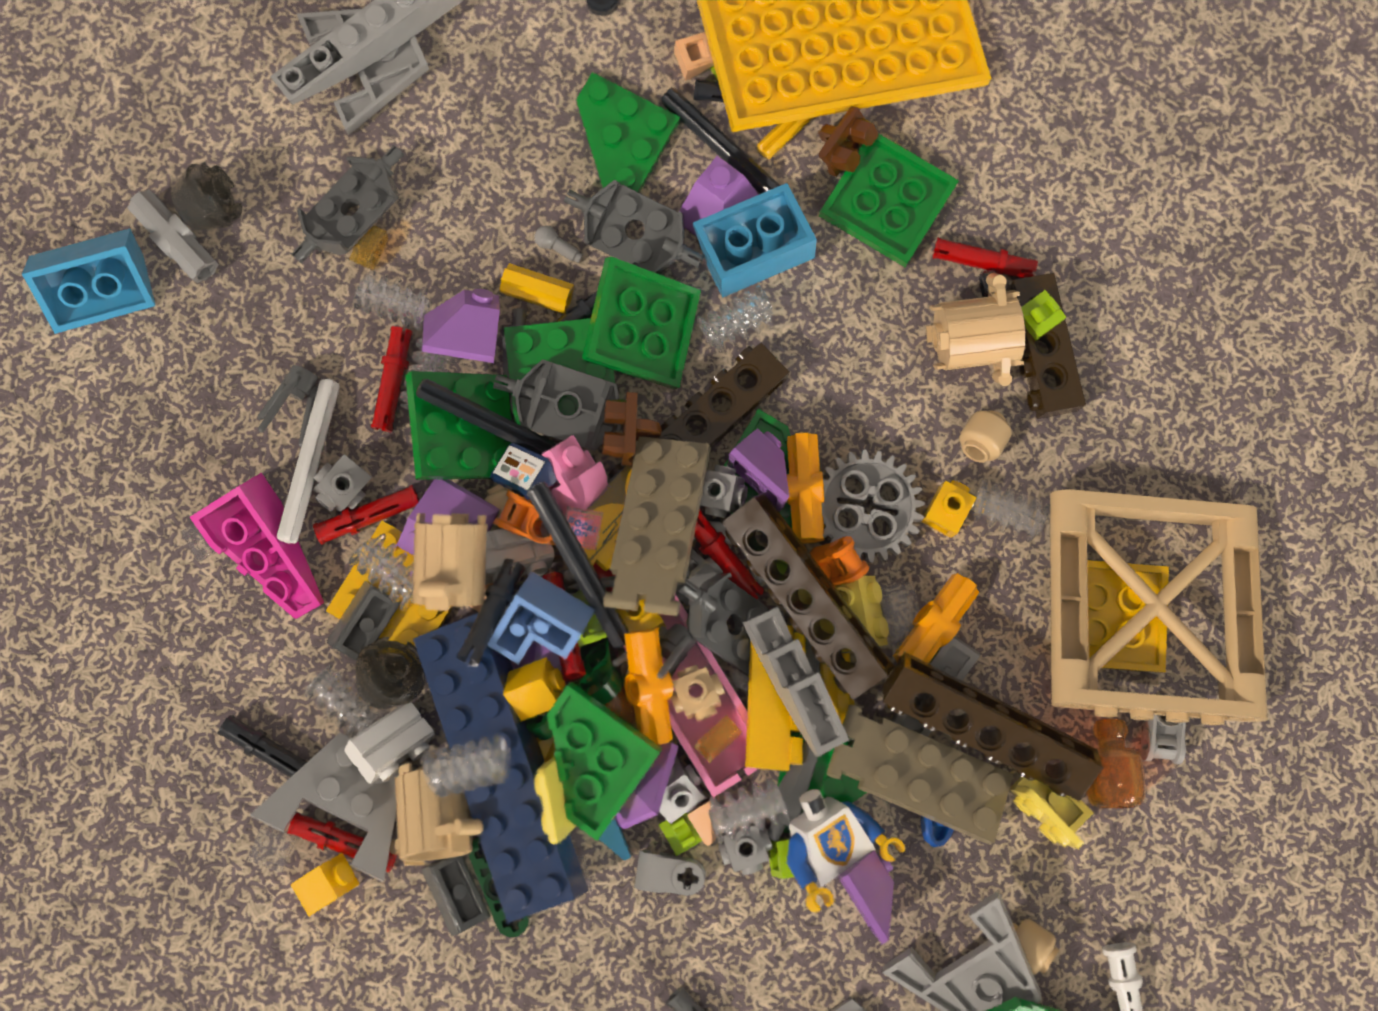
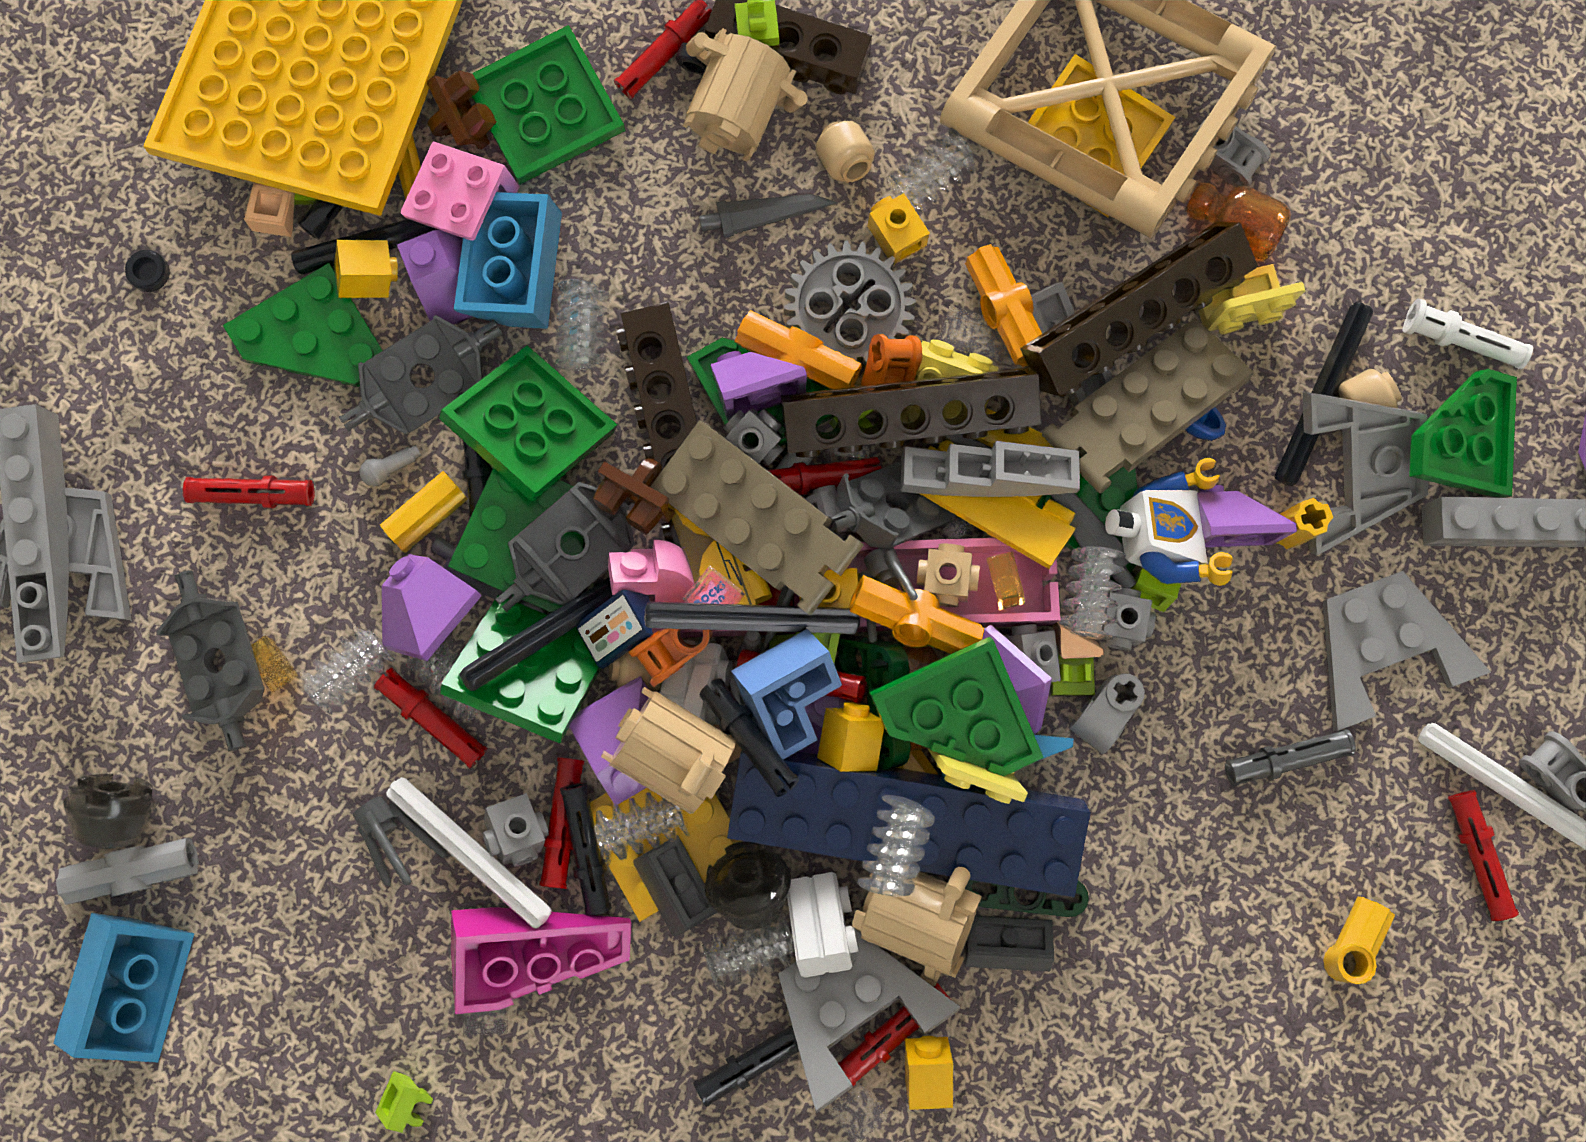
camera: 60 degrees left, 0 degrees up
(110, 513) = (398, 1102): none -> lime tile
(329, 567) = (595, 897): none -> black pin
(500, 191) = (296, 491): none -> red pin
(688, 144) = (364, 268): none -> yellow brick
(782, 173) = (455, 190): none -> bright pink bracket
(895, 393) = (745, 215): none -> dark grey bar
(904, 954) = (1310, 519): none -> yellow axle
(1021, 909) = (1327, 384): none -> black axle

